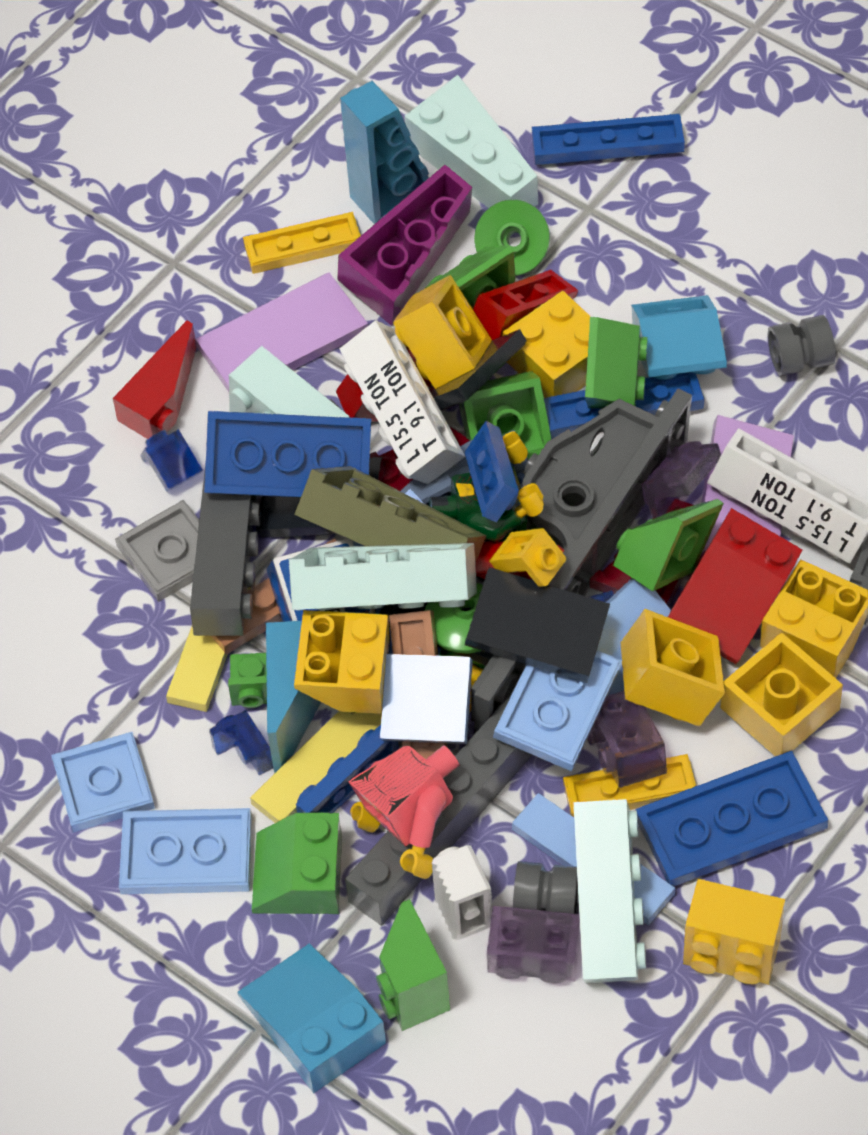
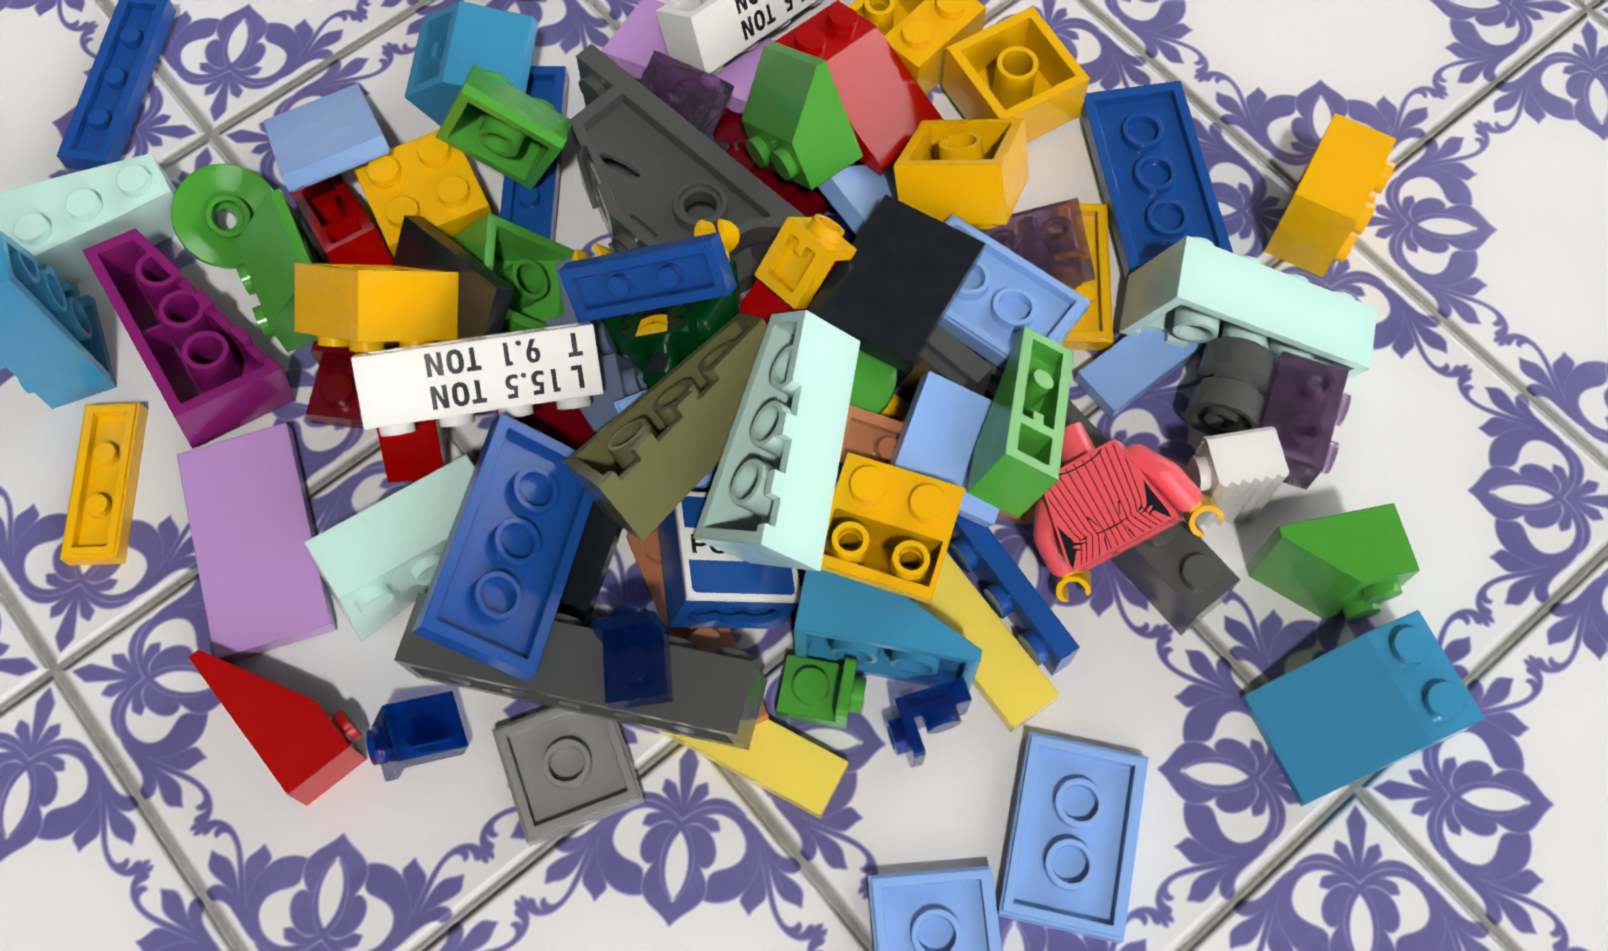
camera: 80 degrees left, 10 degrees up
(227, 543) = (635, 658): none -> clear blue bracket
(298, 865) = (1137, 683): bright green slope -> none
(450, 723) = (1025, 426): none -> bright green slope
(587, 270) = (325, 138): none -> light blue tile

